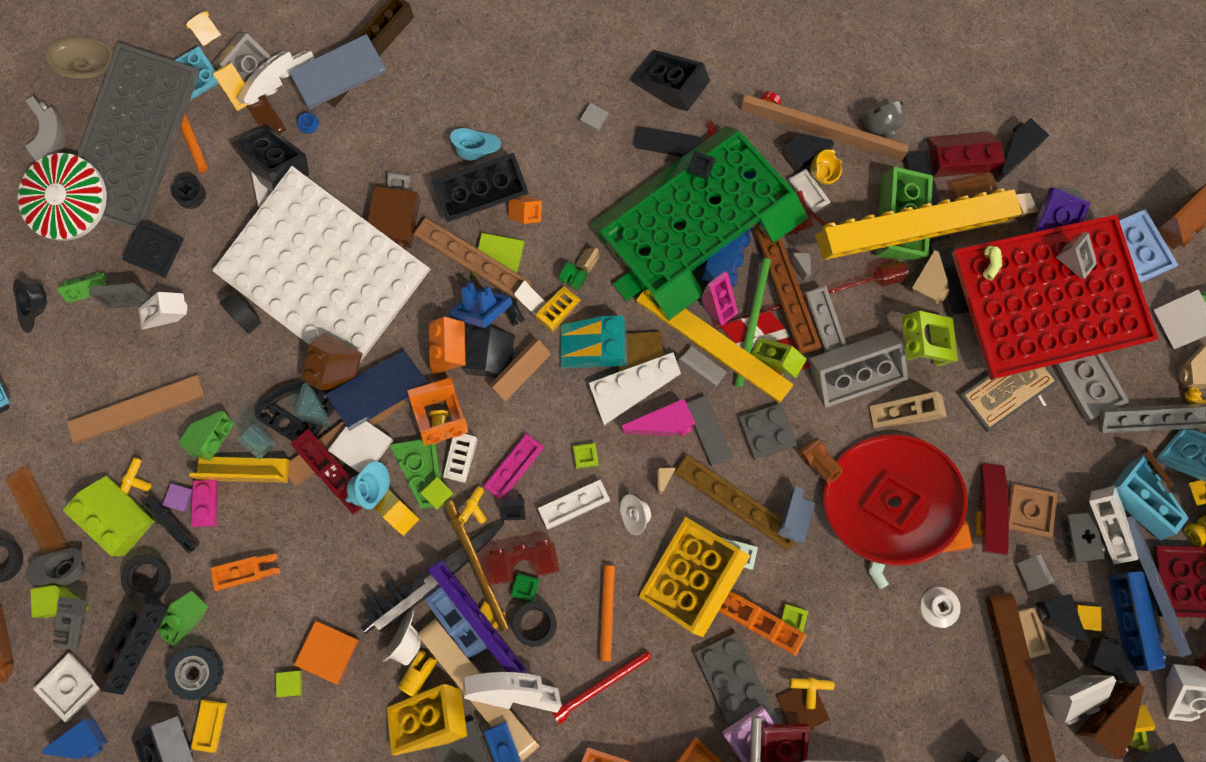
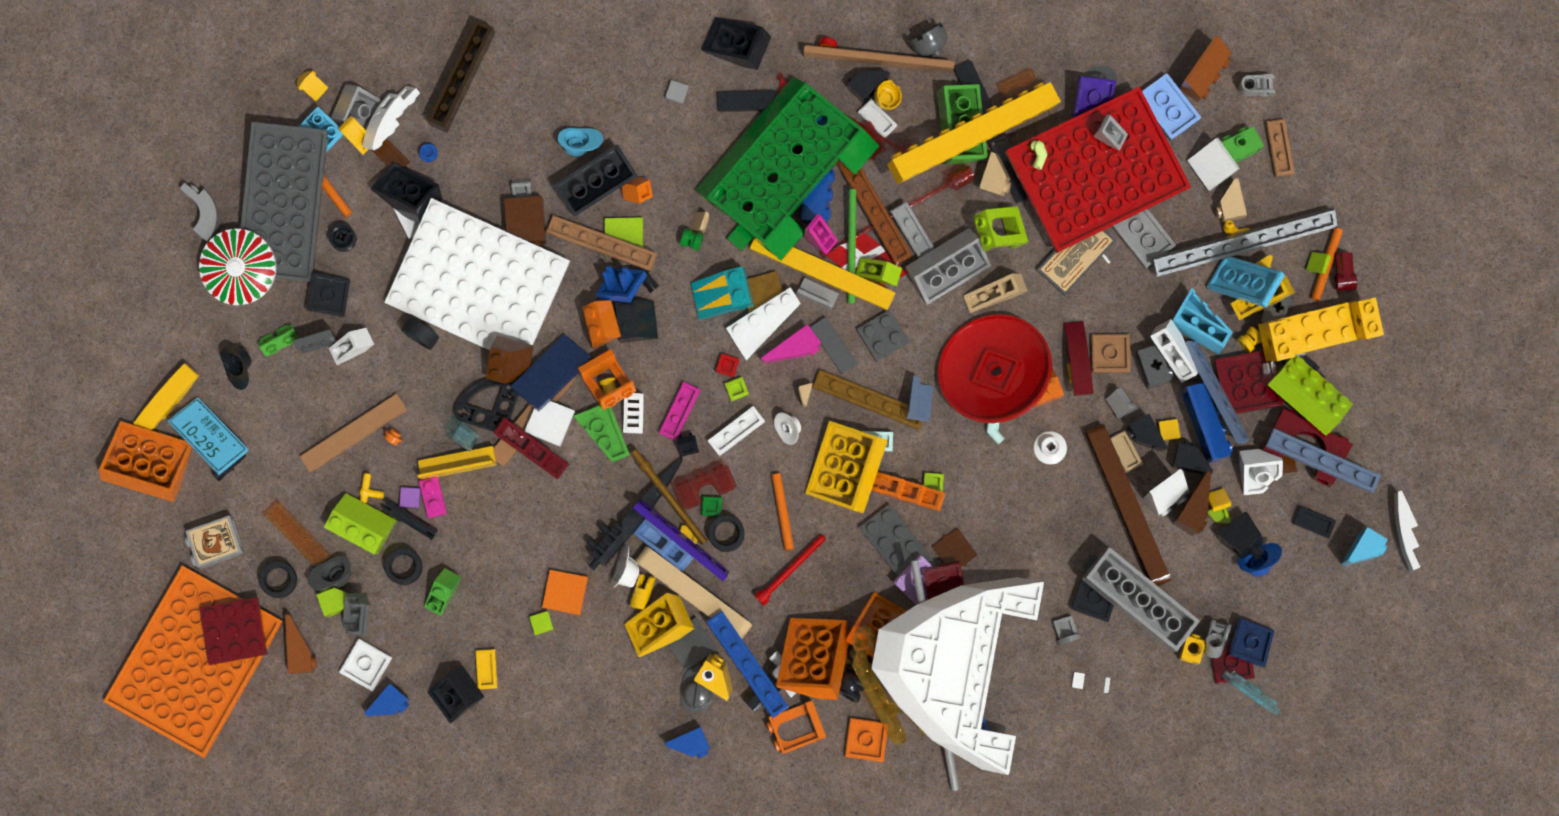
camera: 10 degrees left, 5 degrees up
(79, 58) = (214, 138): dark tan dish -> none
(129, 643) = (408, 618): black brick -> none
(178, 422) = (393, 436): none -> orange plate
(180, 677) = (452, 630): black wheel -> none
(206, 435) = (419, 442): bright green slope -> none
(242, 572) = (480, 545): orange hinge -> none
(310, 408) = (501, 400): clear light blue slope -> none
(338, 71) = (447, 104): sand blue tile -> none
(368, 486) = (566, 453): medium azure piece -> none
(396, 513) = (591, 469): yellow slope -> none
(437, 493) = (623, 446): lime tile -> none
(471, 506) = (654, 452): yellow piece -> none
(508, 687) = (715, 585): white slope -> none
(520, 369) = (666, 329): medium nougat tile -> none
(529, 298) = (660, 267): white sticker -> none
(541, 314) = (677, 283): yellow slope -> none
(581, 426) = (727, 365): none -> red tile
(701, 165) = (779, 122): black tile -> none
(802, 264) = (883, 186): light grey slope -> none
(811, 685) = (957, 531): yellow piece -> none
(817, 456) = (928, 348): dark orange piece -> none
(965, 154) = (1004, 55): dark red slope -> none
(1023, 142) = (1054, 34): black slope -> none
(1027, 205) = (1065, 90): tan slope -> none
(1159, 468) = (1206, 295): reddish brown piece -> none

